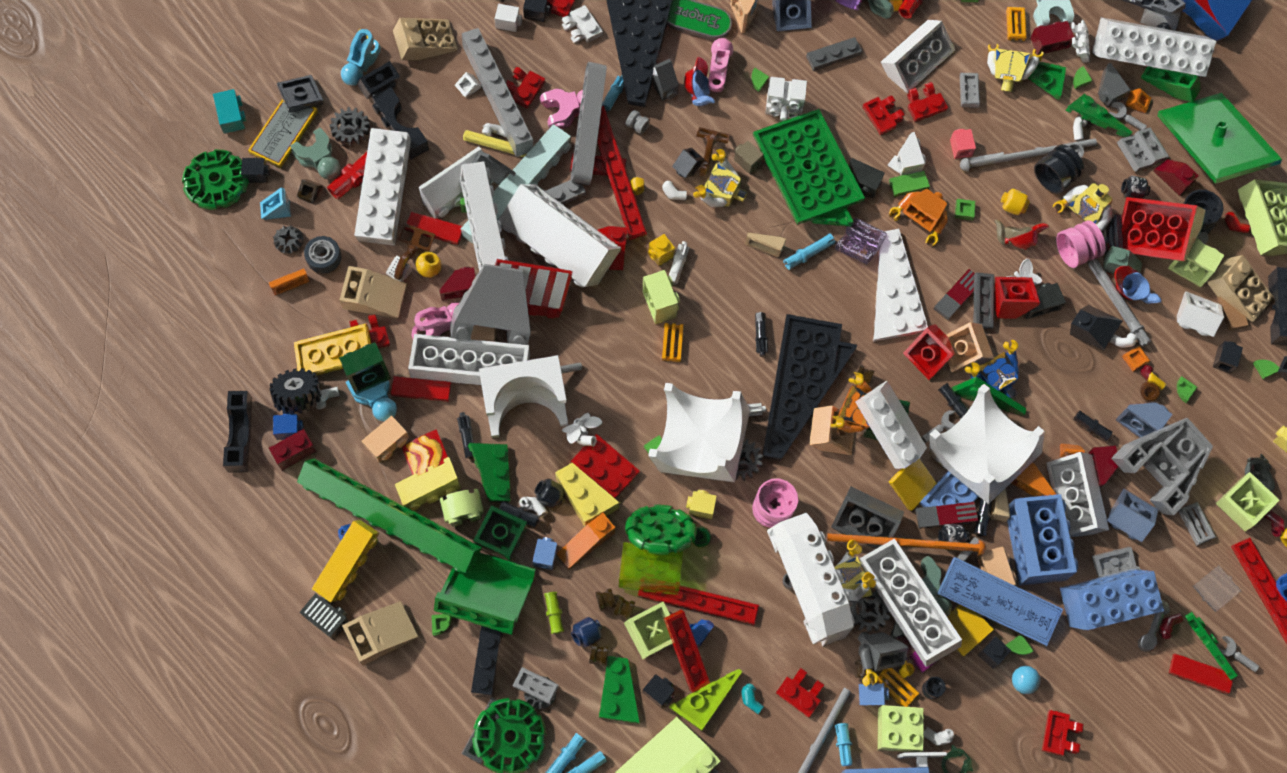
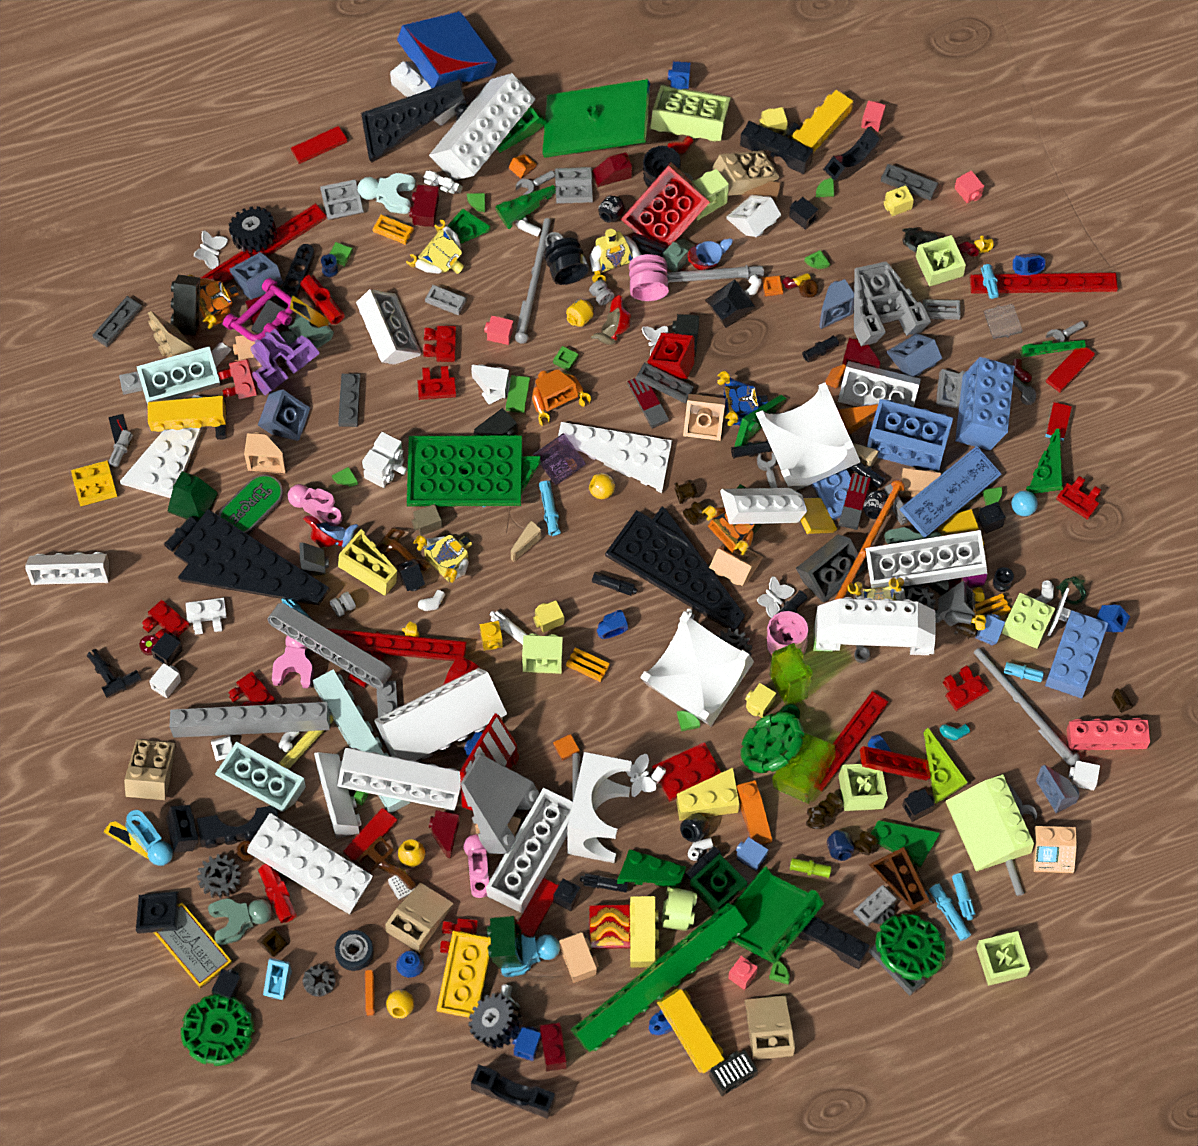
camera: 65 degrees left, 5 degrees down
(229, 111) = (147, 988): teal brick -> none
(287, 309) = (400, 1003): none -> yellow piece
(329, 305) = (407, 967): none -> blue cone
(424, 588) = (743, 972): none -> coral brick
(440, 407) = (567, 894): none -> black brick
(446, 120) = (261, 777): none -> light aqua slope
(497, 170) = (334, 754): dark grey panel -> none
(574, 704) = (903, 878): none -> reddish brown wedge
(584, 354) = (566, 747): none -> orange tile
(683, 123) = (367, 564): none -> light yellow wedge
(702, 290) = (548, 616): none -> light yellow brick
(718, 347) = (612, 625): none -> blue rock
(734, 518) = (790, 674): none -> clear neon green brick
(812, 498) = (794, 603): none -> black pin
(813, 477) = (772, 597): none -> white piece
(851, 286) = (602, 486): none -> yellow piece
(882, 359) = (685, 491): none -> dark brown brick
(930, 351) = (695, 447): red slope -> none
(1046, 211) = (601, 292): none -> light grey wheel
(1071, 693) = (1049, 471): none -> green wing
(1112, 86) = (498, 180): dark grey slope -> none
(1135, 682) = (1058, 419): none -> red tile
(1251, 557) = (990, 281): none -> medium azure axle

